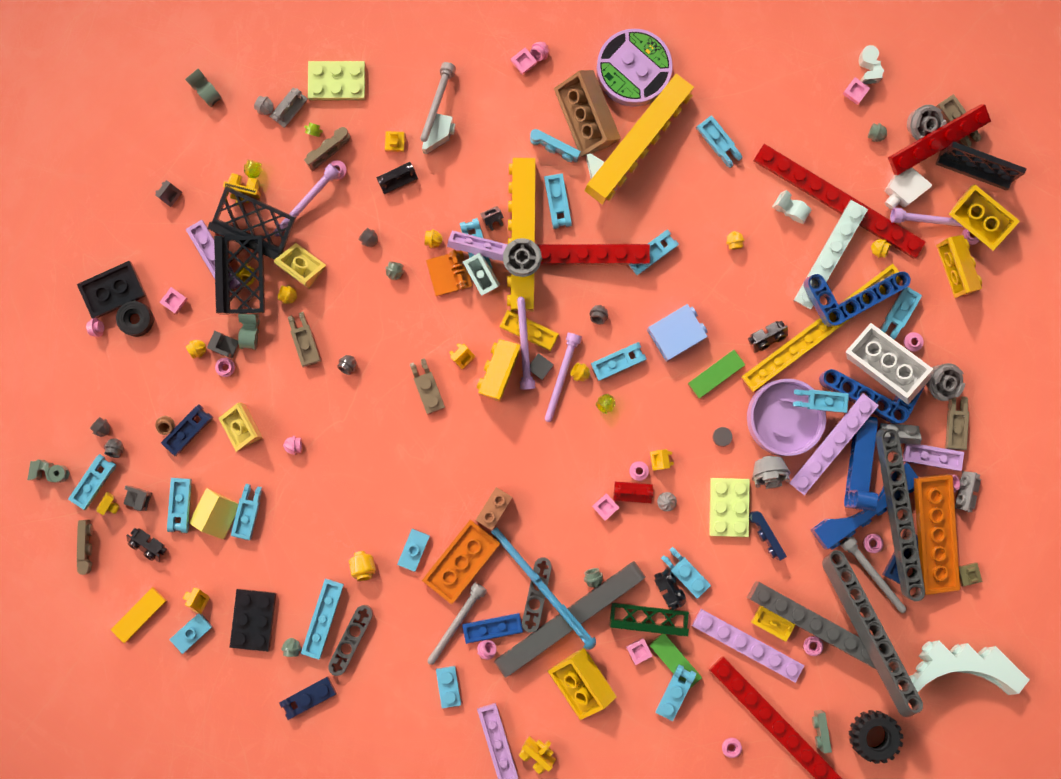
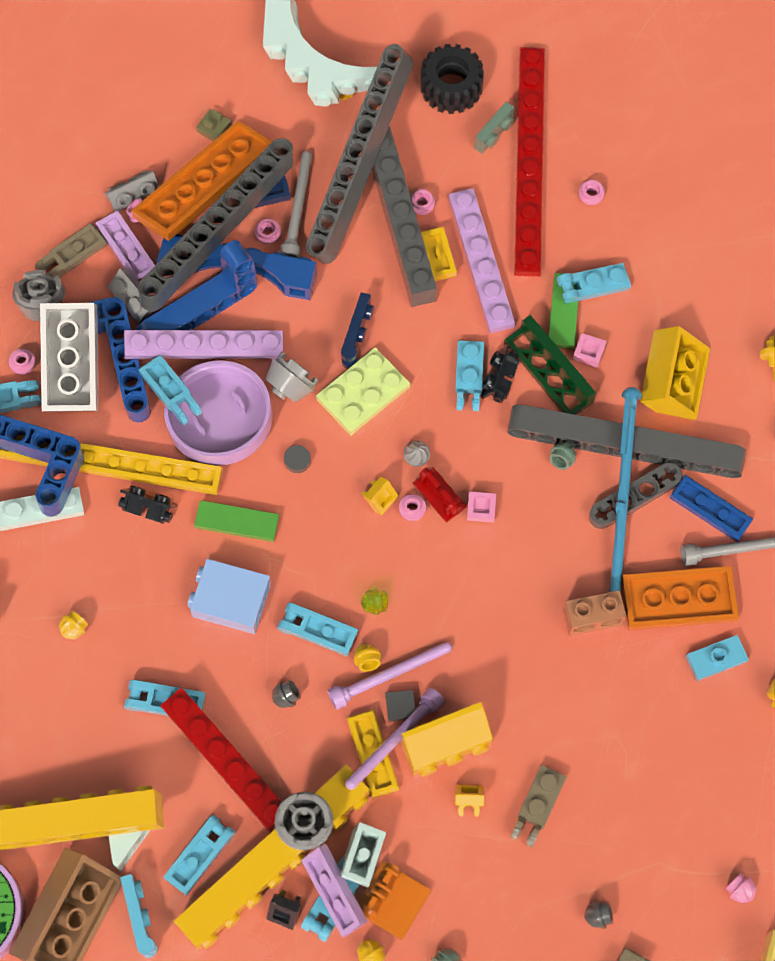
camera: 130 degrees left, 15 degrees down
(486, 649) = (738, 492): bright pink plate -> none

